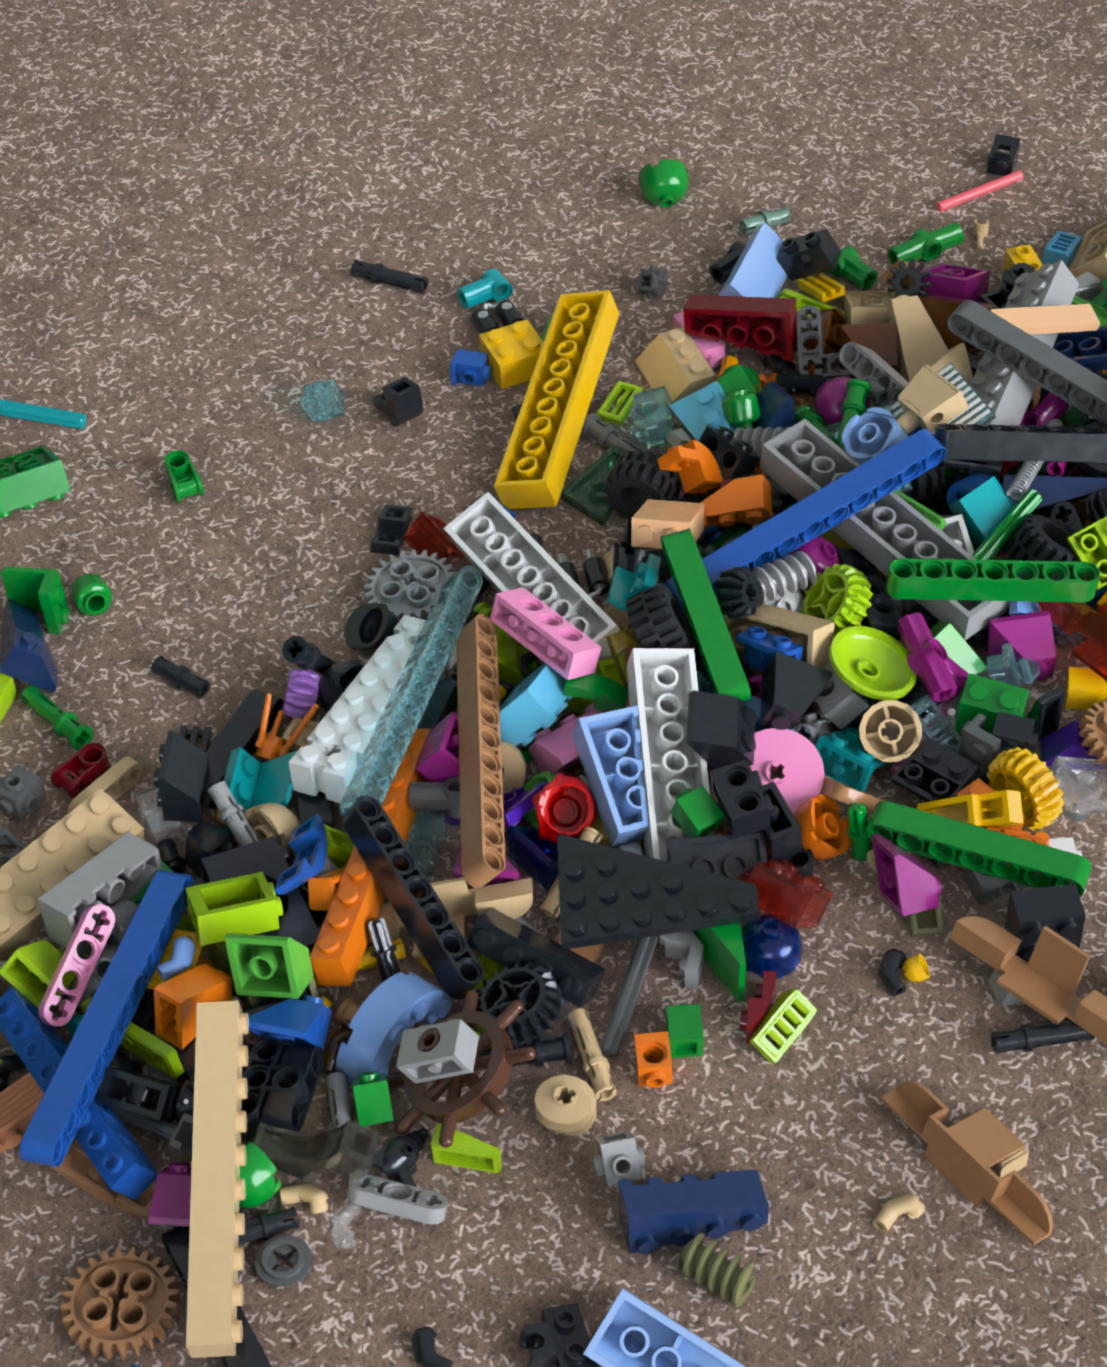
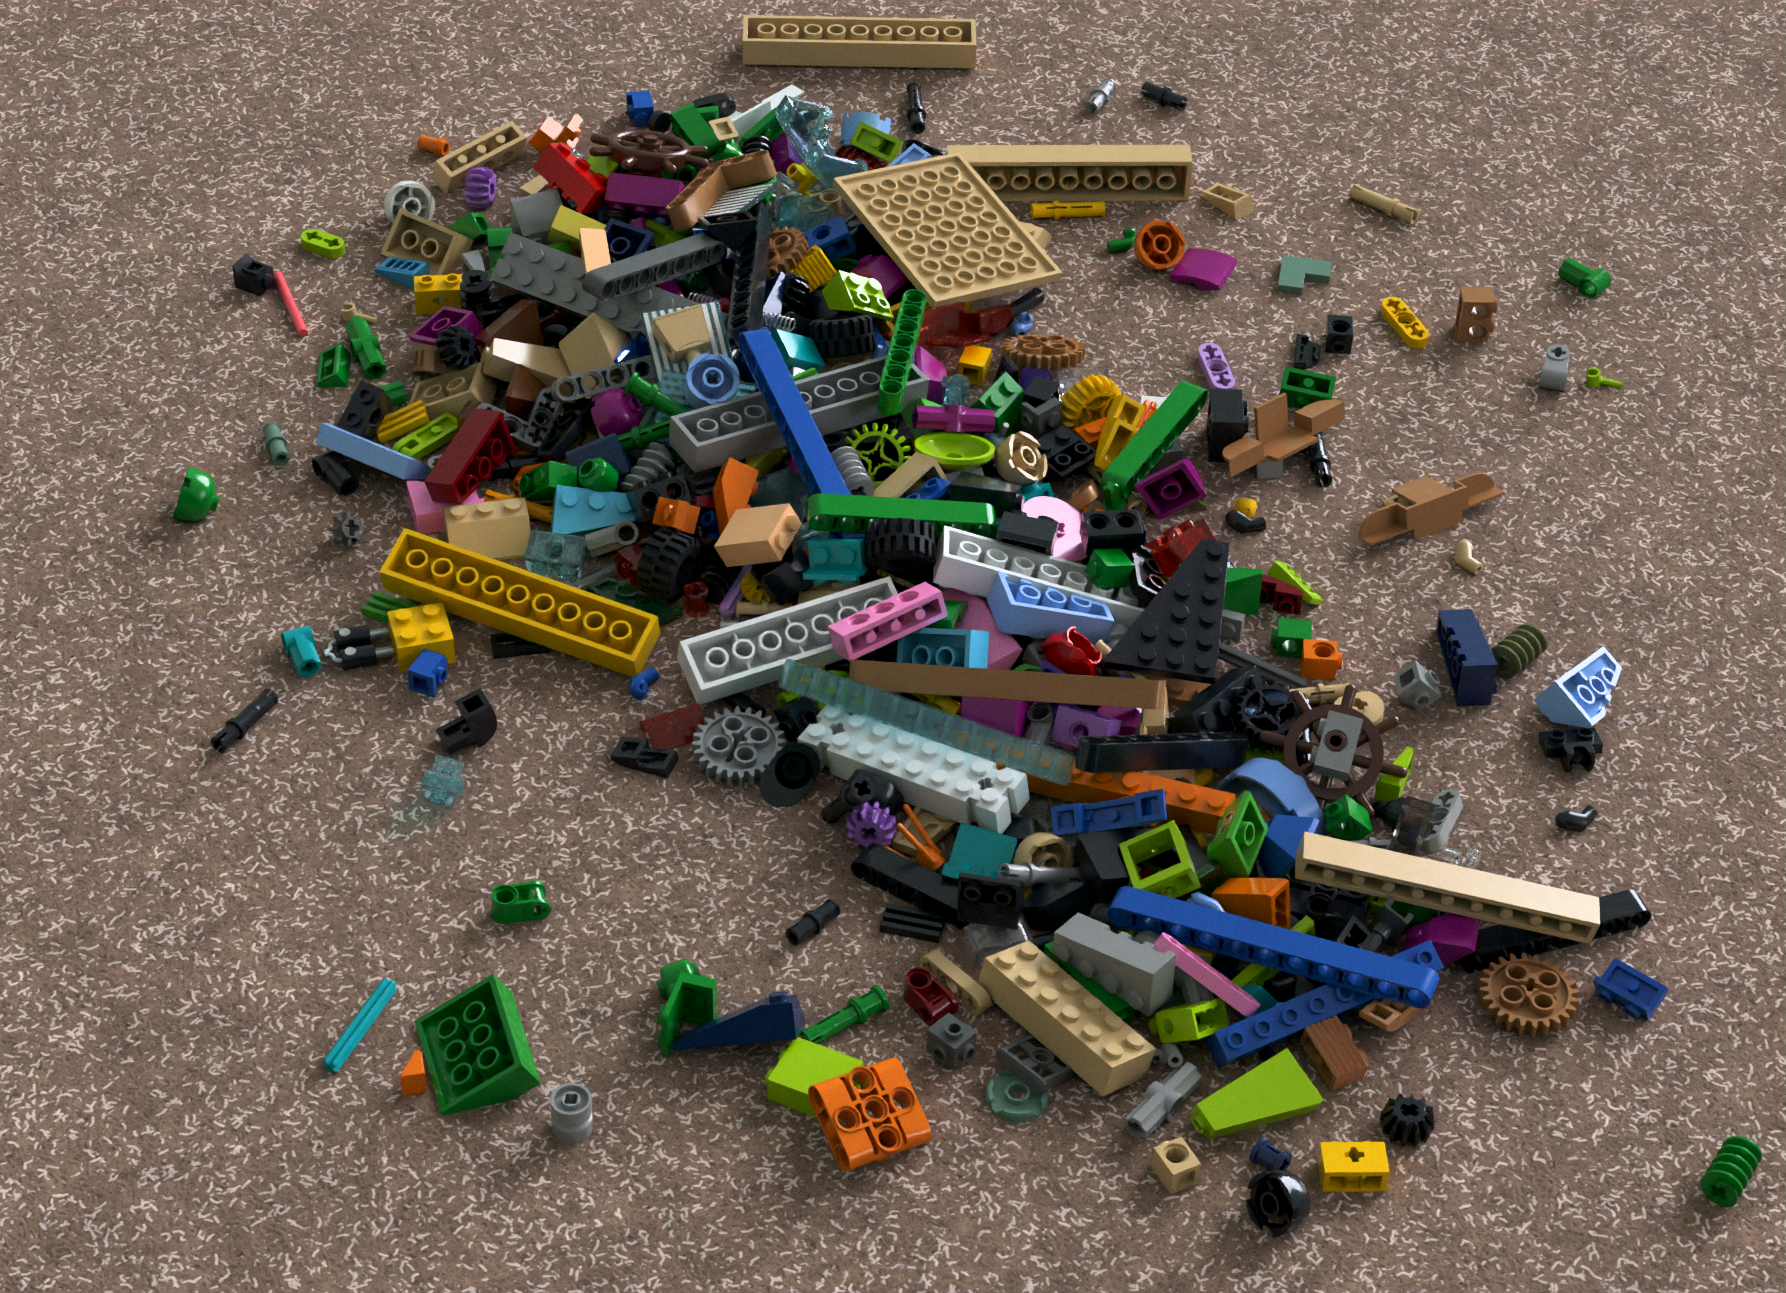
camera: 85 degrees left, 5 degrees down
(442, 836) = (1071, 721): none -> medium lavender brick
(613, 525) = (696, 599): none -> clear red bush
(738, 592) = (874, 485): black gear -> none
(878, 393) = (620, 381): dark grey pin -> none
(890, 236) = (334, 367): none -> green slope
(1008, 525) = (815, 341): green axle -> none
(1084, 192) = (323, 243): none -> lime beam

